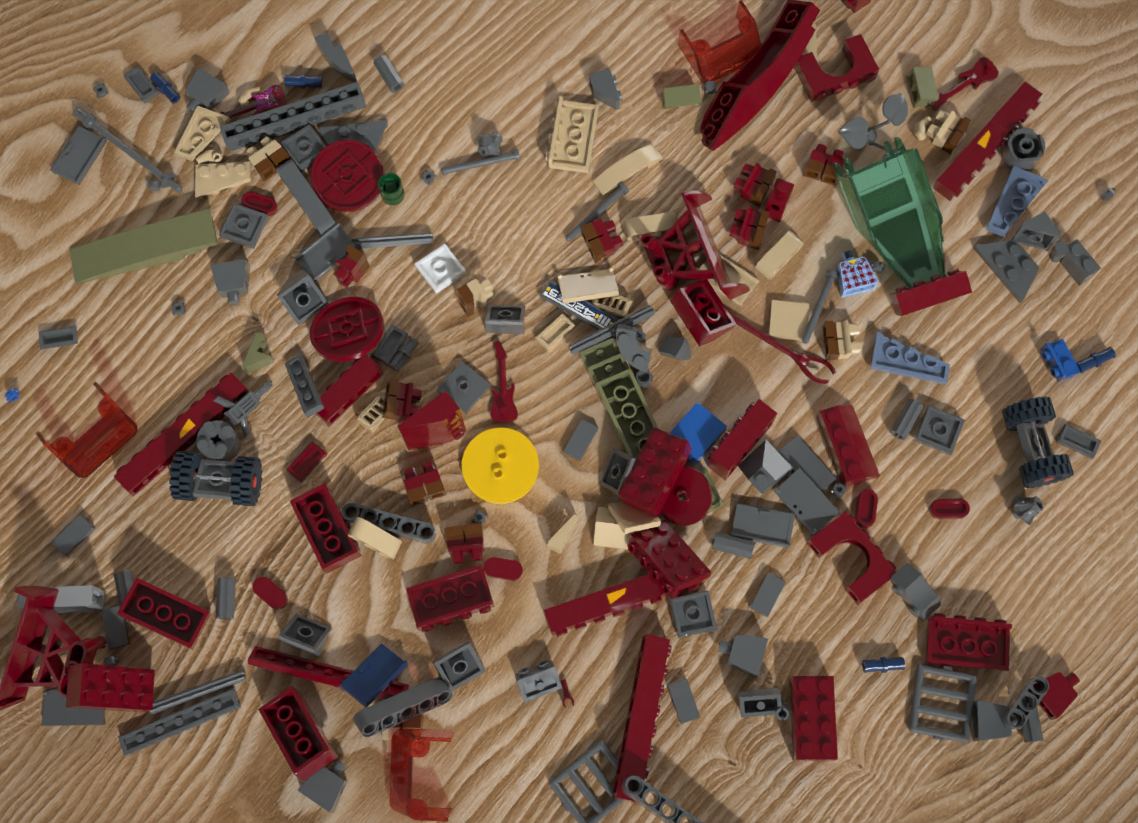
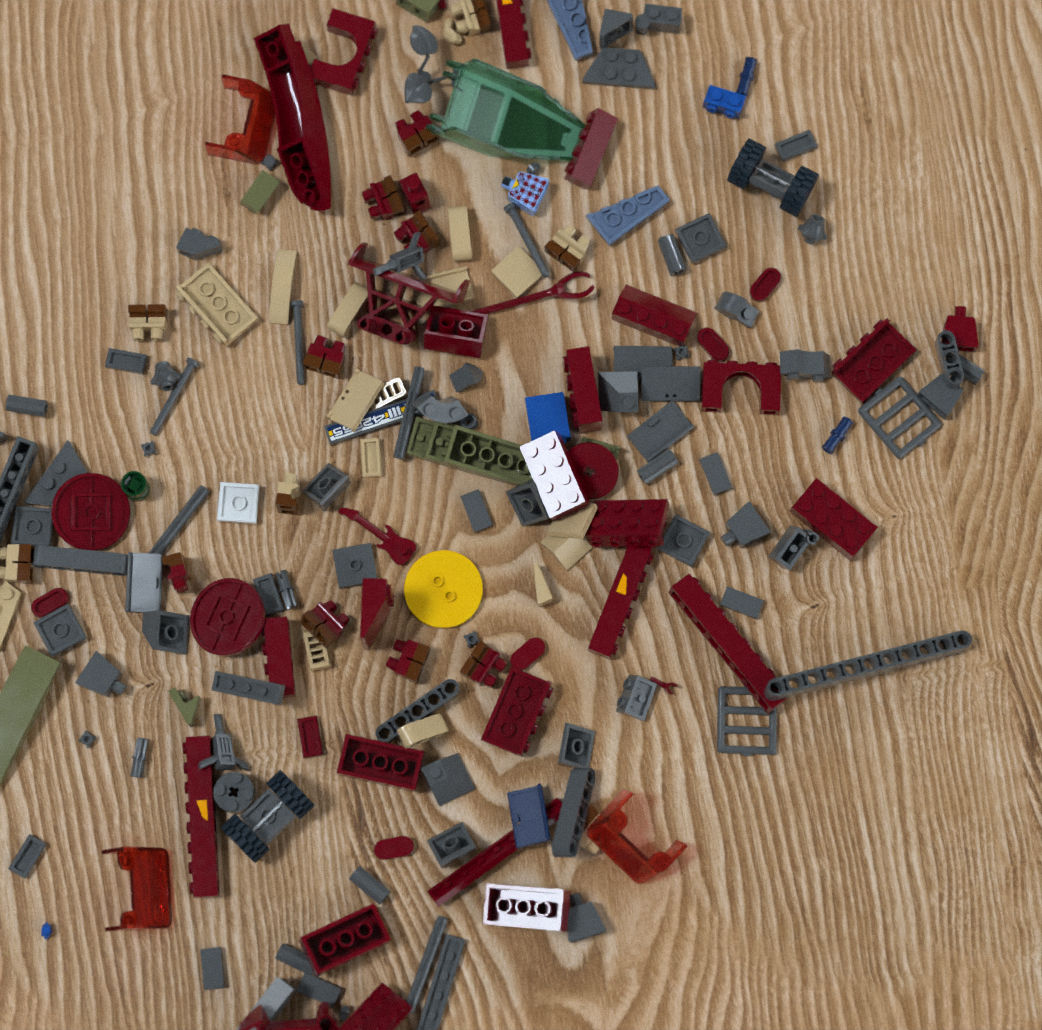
camera: 50 degrees left, 5 degrees up
(192, 355) = (139, 758): none -> dark grey axle
(355, 588) = (448, 779): none -> dark grey slope
(479, 112) = (126, 361): none -> dark grey tile
(521, 99) = (147, 319): none -> tan hips
(722, 230) = (405, 259): none -> dark grey piece
(911, 502) = (737, 308): none -> dark grey brick

